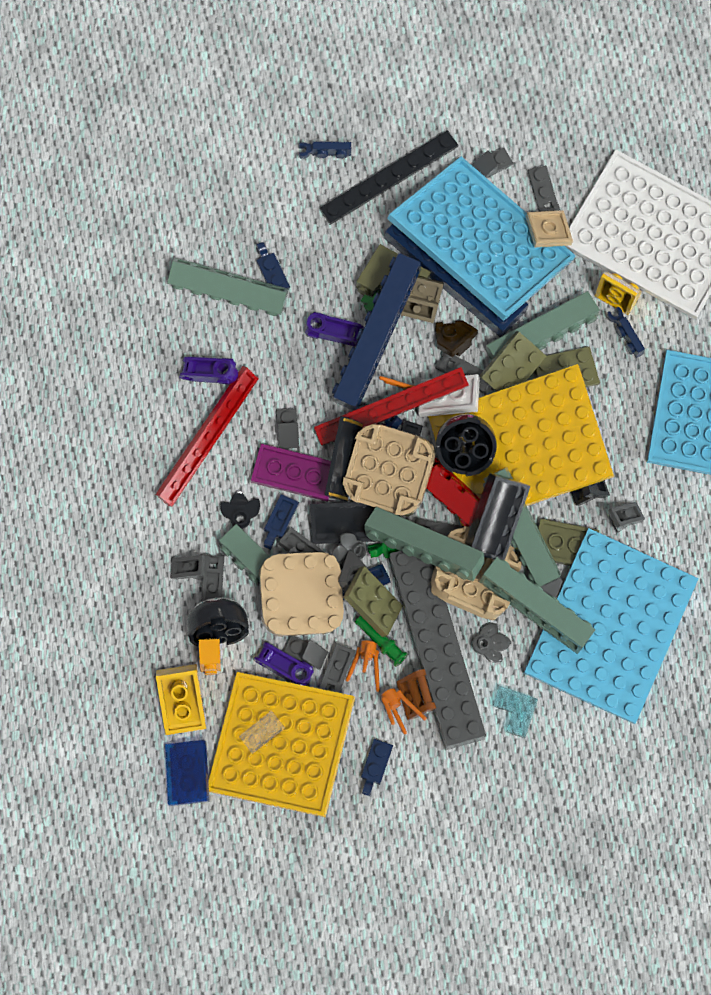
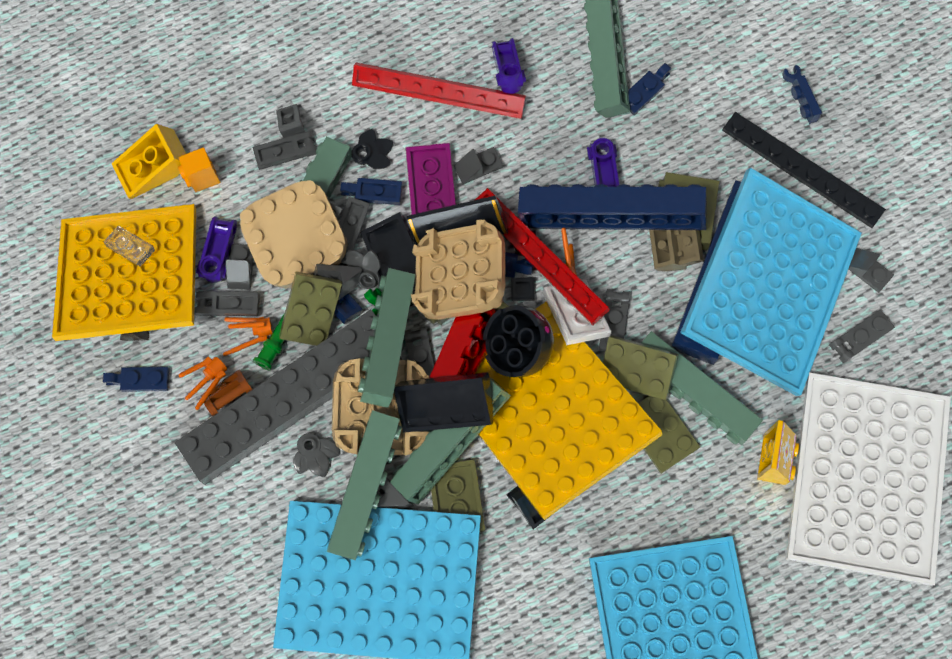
camera: 80 degrees right, 0 degrees up
(187, 773) = (74, 195): clear blue tile -> none
(219, 620) = (236, 162): black cylinder -> none
(454, 337) = (648, 297): dark brown plate -> none
(520, 706) = (249, 513): clear light blue plate -> none
(549, 228) = (818, 353): tan plate -> none
(625, 330) = (734, 481): dark blue plate -> none
(625, 516) = (512, 554): dark grey slope -> none

